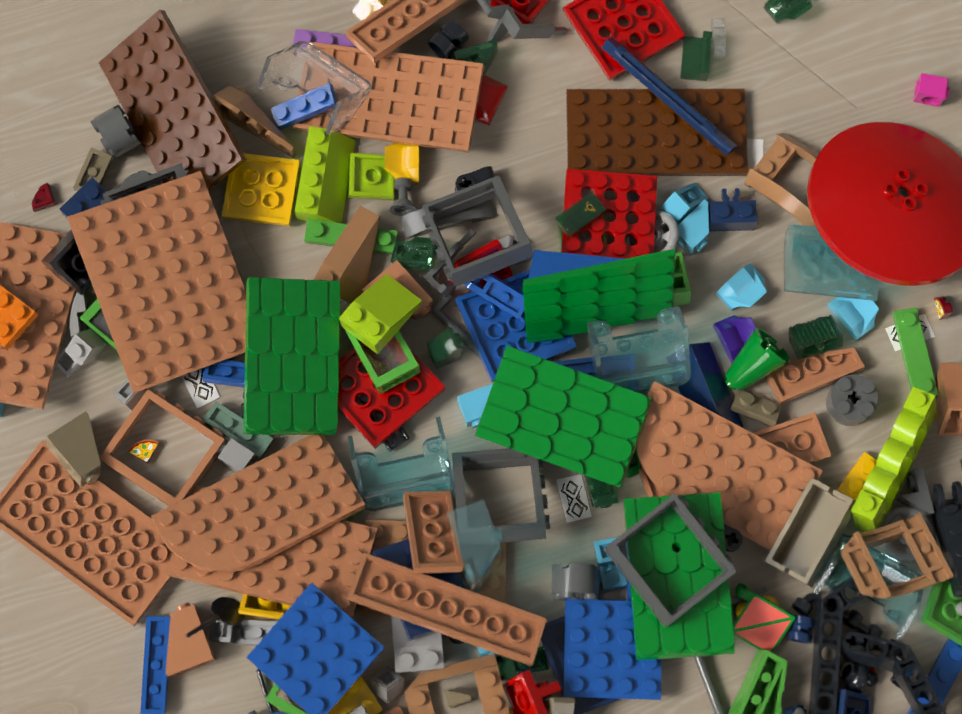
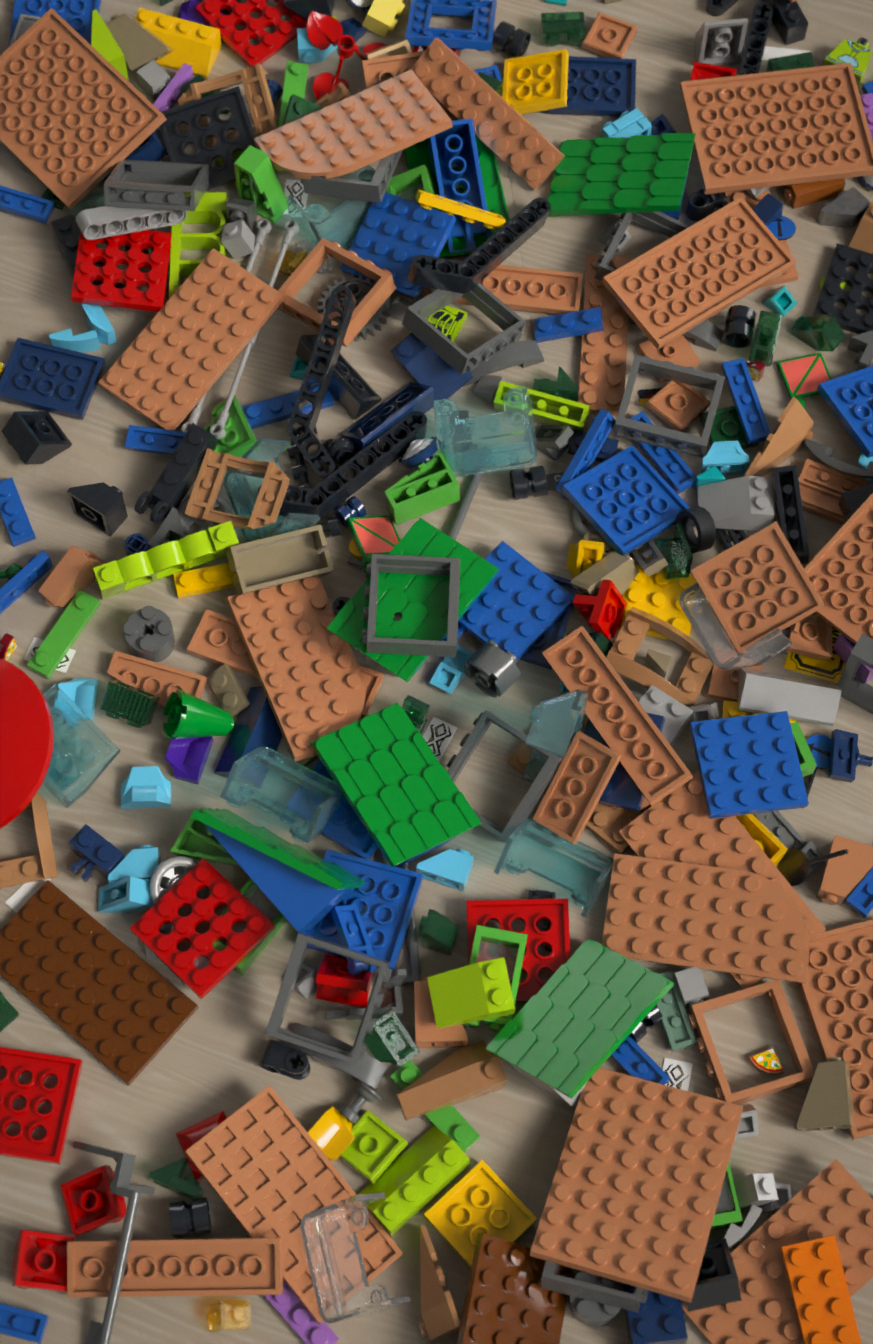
camera: 140 degrees left, 10 degrees down
(304, 106) = (378, 1257): plate -> none
(580, 214) = (227, 941): clear green tile -> none
(669, 96) = (50, 997): dark blue piece -> none
(926, 463) = (136, 540): none -> dark blue wheel

